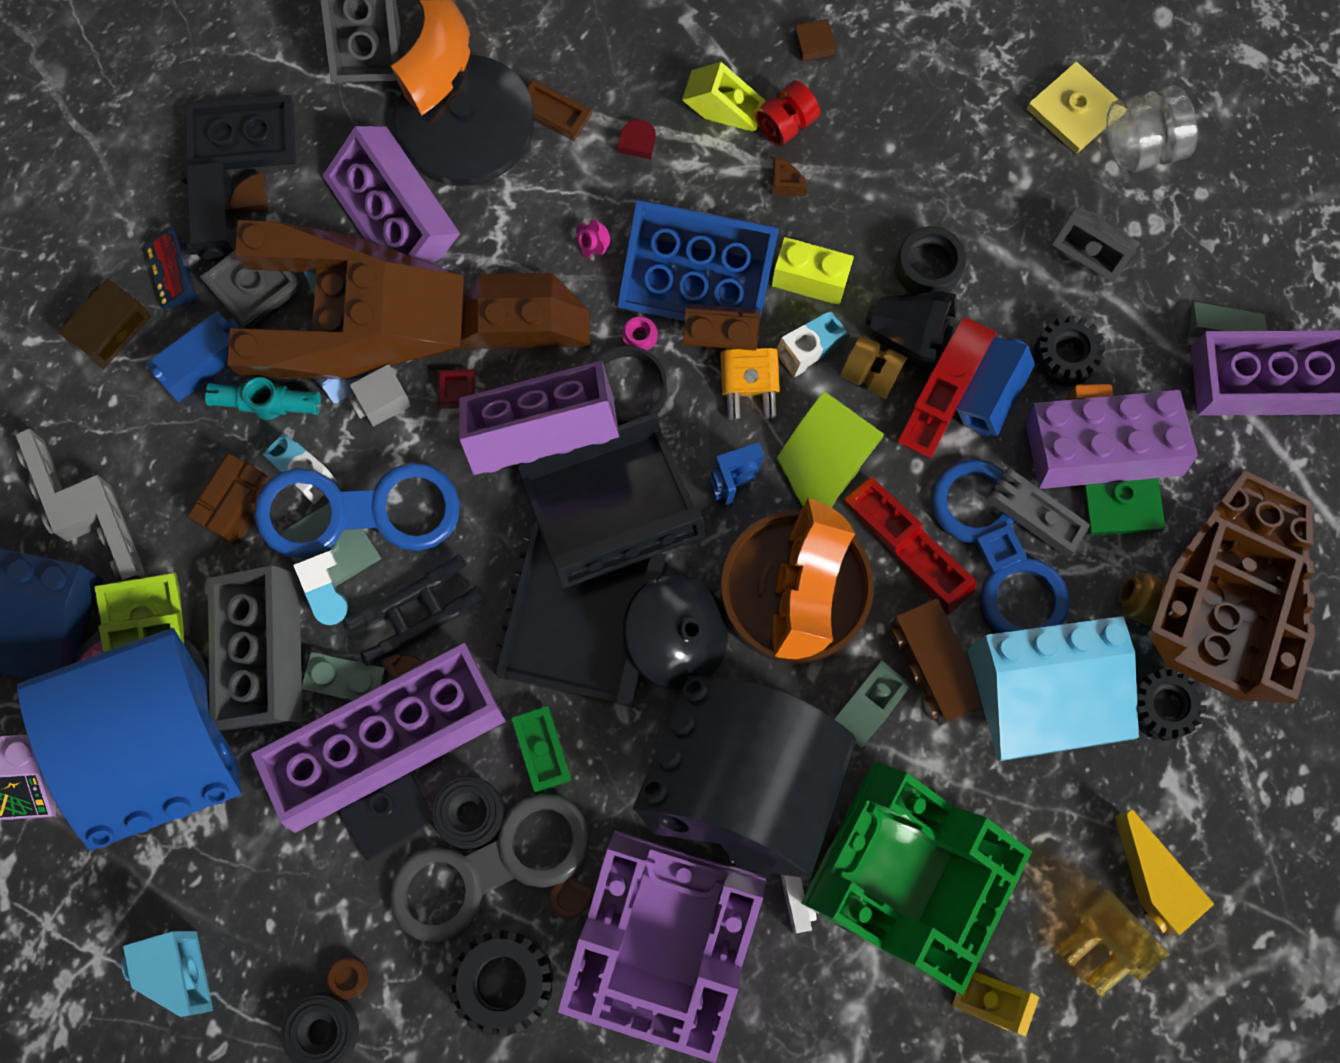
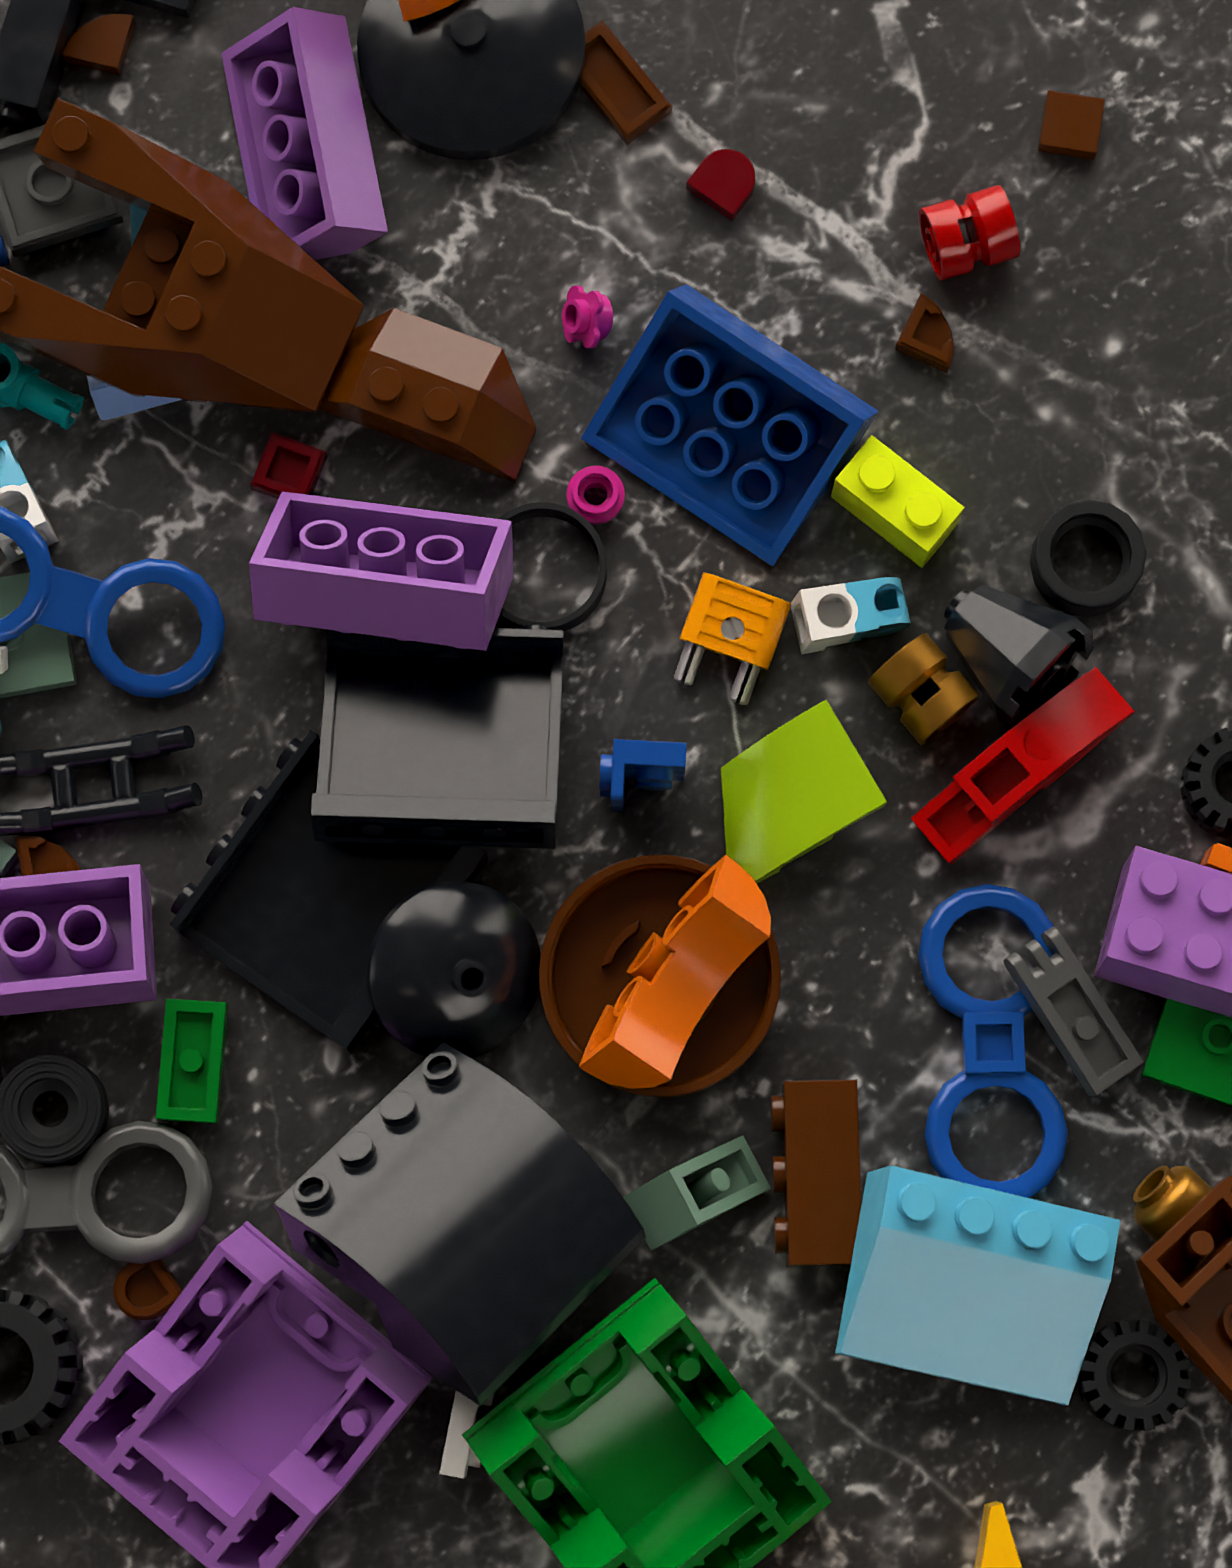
camera: 25 degrees right, 5 degrees up
(379, 396) = (168, 438): light grey brick -> none
(722, 97) = (881, 167): neon yellow slope -> none
(722, 326) = (720, 535): reddish brown brick -> none
(910, 545) = (862, 981): red slope -> none
(996, 386) = (1096, 793): blue brick -> none

